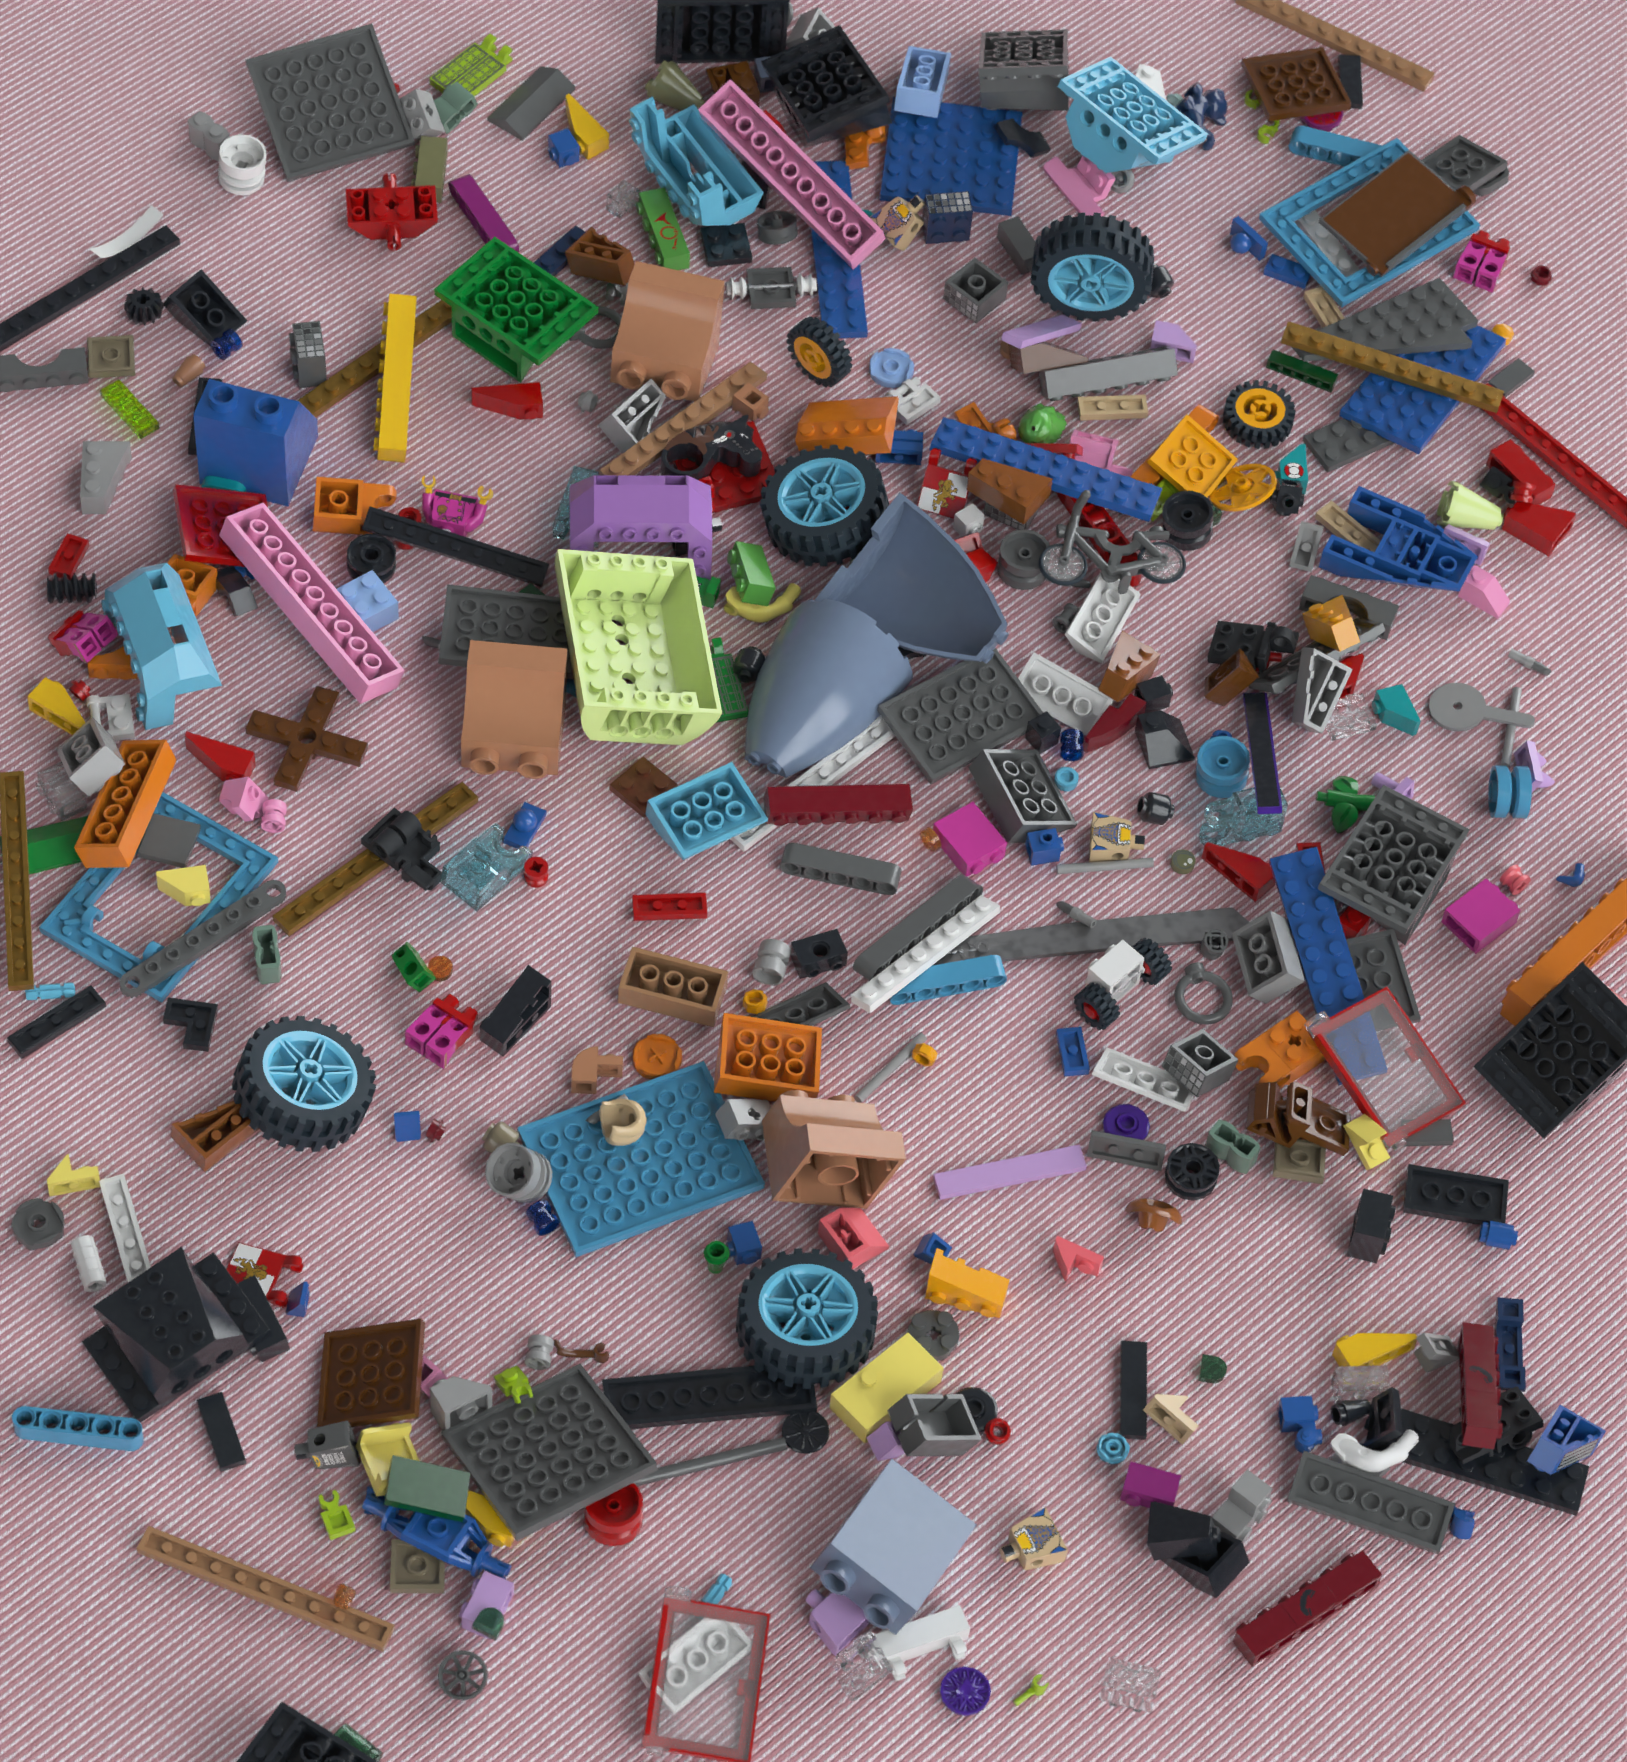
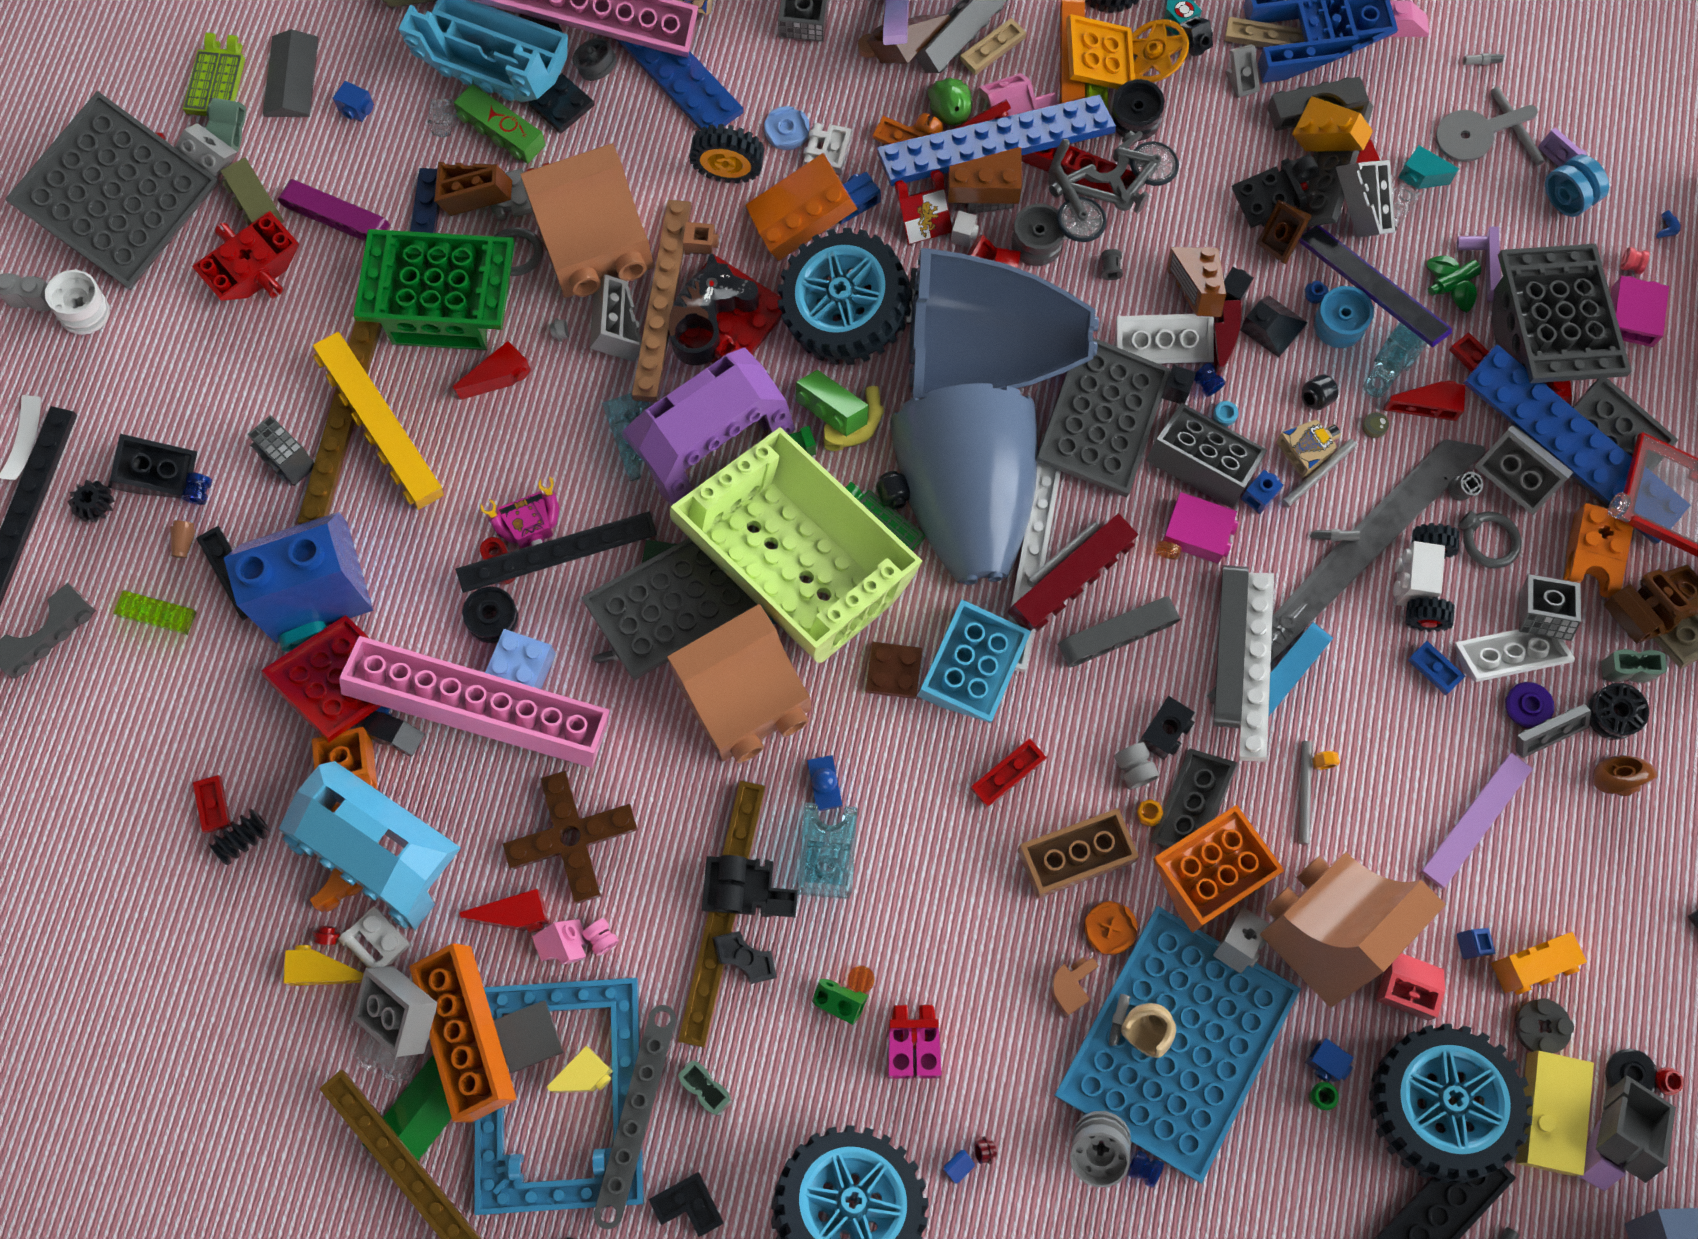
camera: 30 degrees left, 15 degrees up
(83, 635) = (284, 883): dark pink hips -> none
(100, 473) = (179, 699): light grey wedge -> none
(111, 356) = (98, 572): dark tan plate -> none
(344, 504) = (434, 567): orange brick -> none
(363, 886) = (755, 964): none -> black tile
(498, 1135) = (1050, 1118): dark tan head -> none
(517, 1011) = (965, 981): black wedge -> none
(531, 876) = (871, 827): red wheel -> none
(585, 129) = (360, 71): yellow slope -> none
(771, 287) = (632, 118): dark grey plate -> none
(805, 1432) = (1520, 1206): black wheel -> none
(1072, 1255) = (1593, 868): coral slope -> none
(1100, 619) = (1138, 247): white slope -> none

